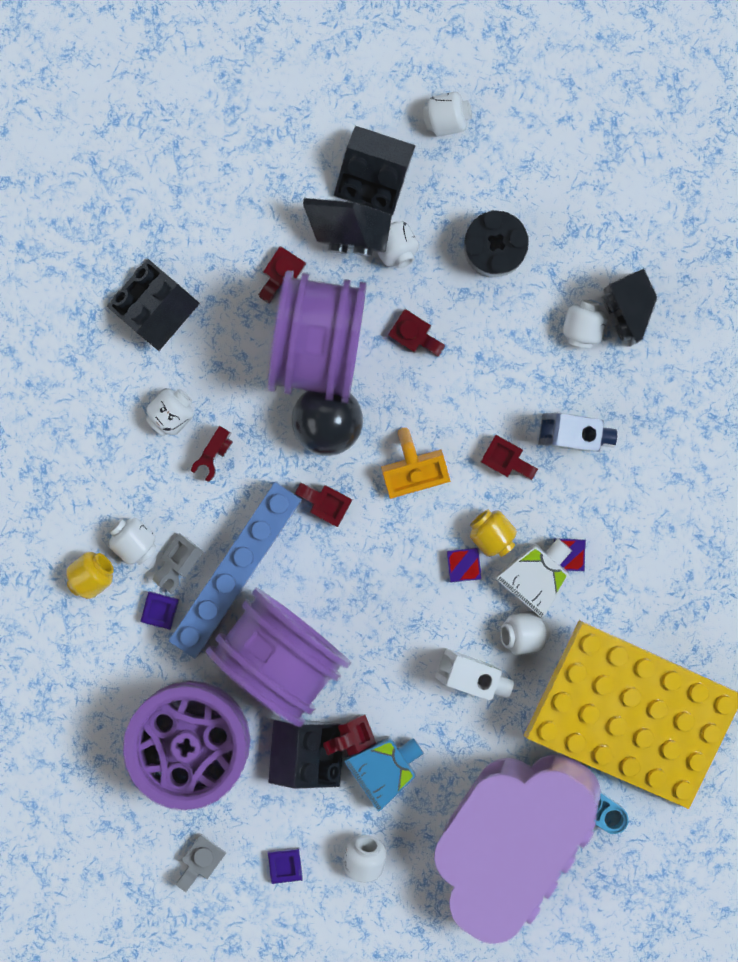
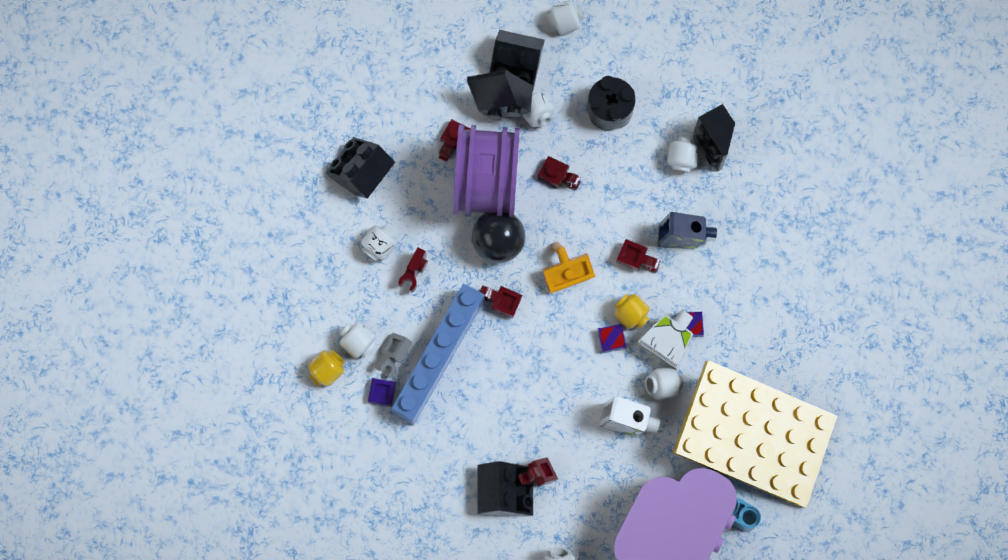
camera: 10 degrees left, 15 degrees down
(172, 750) = (412, 472): medium lavender wheel -> none
(277, 657) = (478, 408): medium lavender wheel -> none
(384, 769) = (566, 496): dark azure torso -> none

